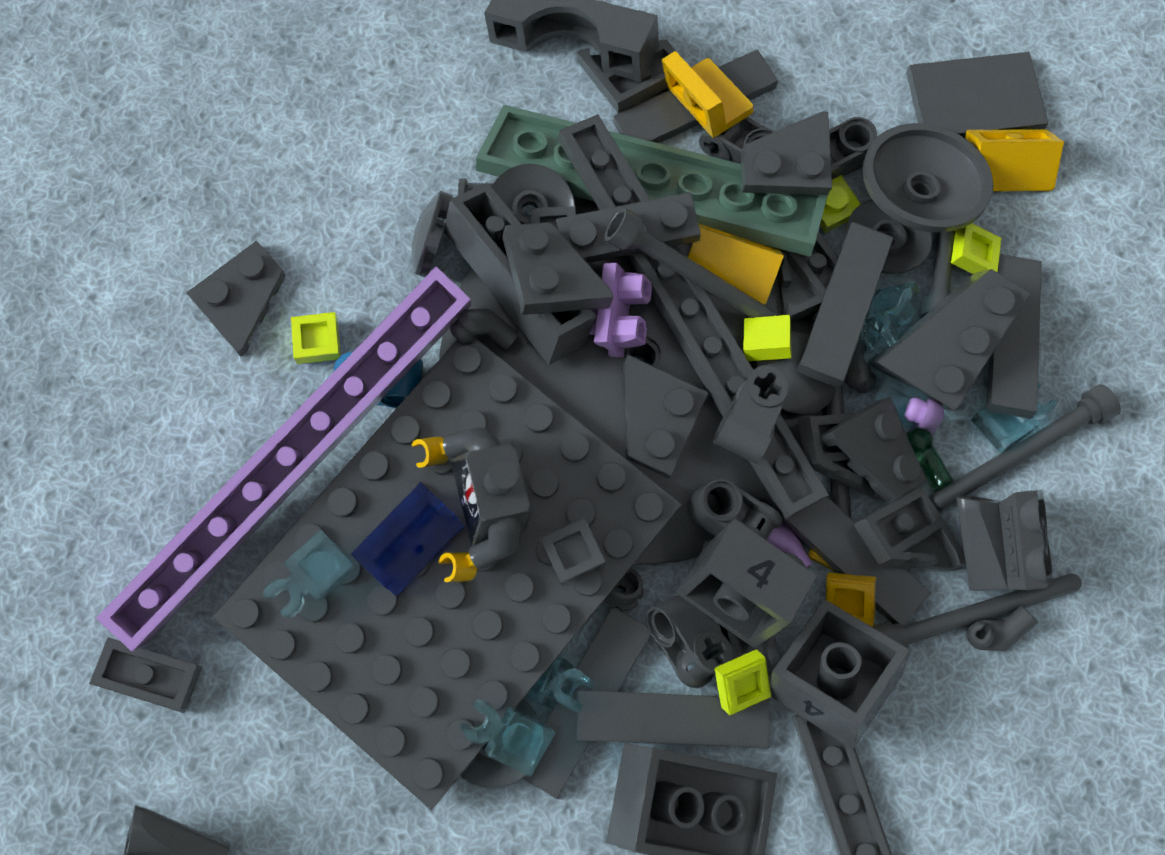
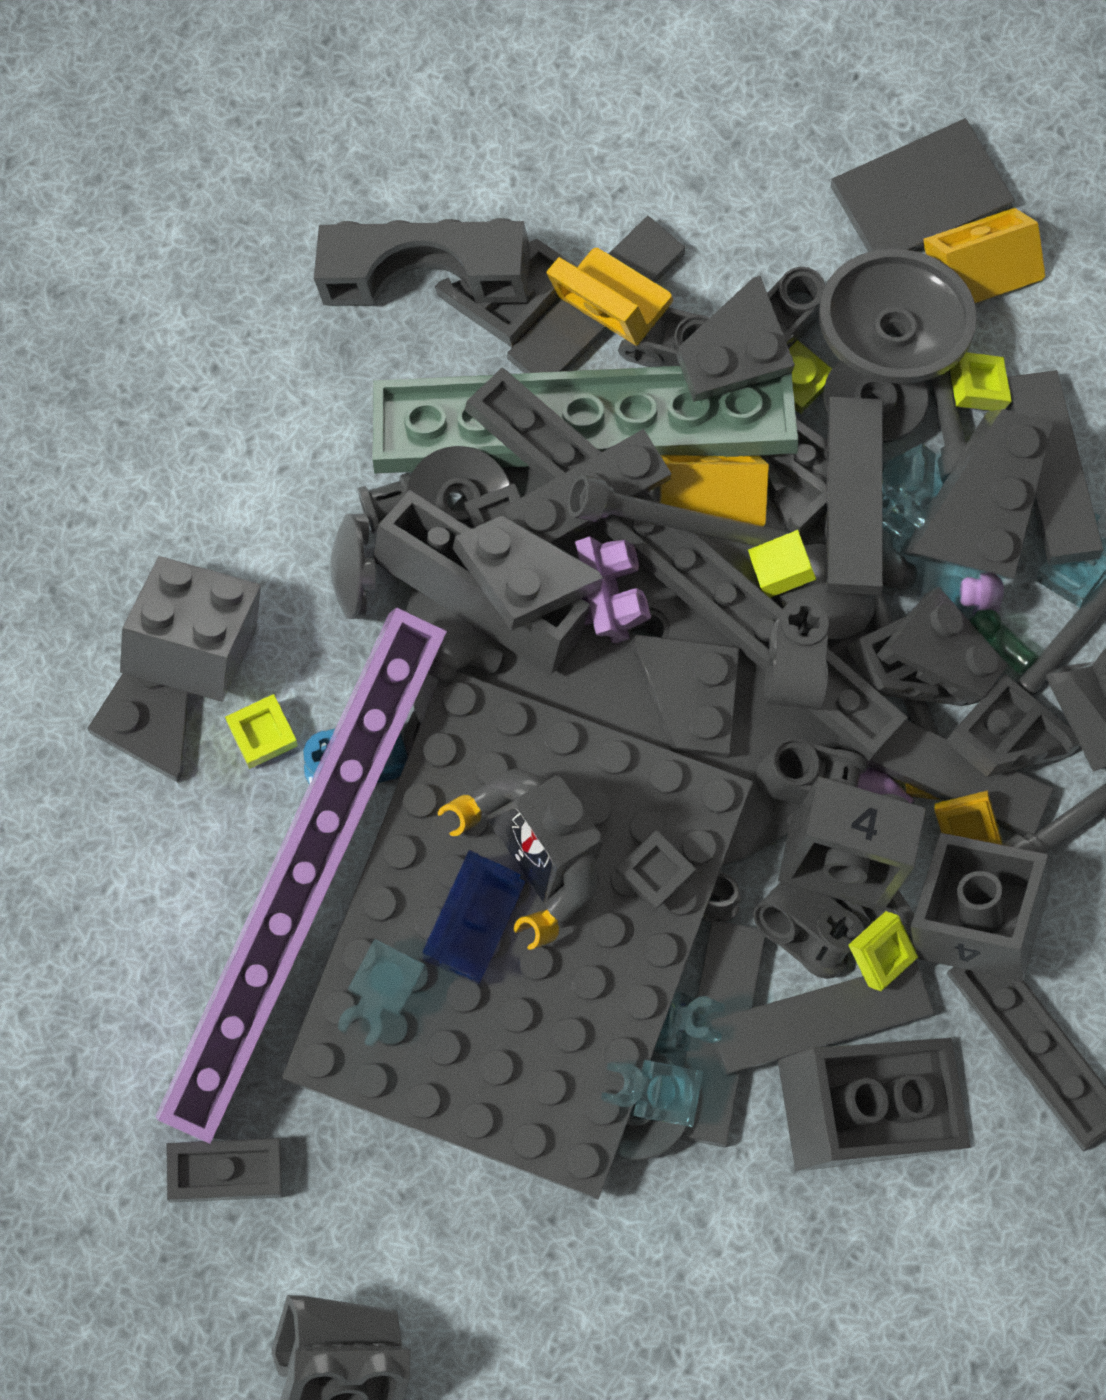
camera: 20 degrees left, 0 degrees up
(287, 240) = (189, 628): none -> dark grey brick

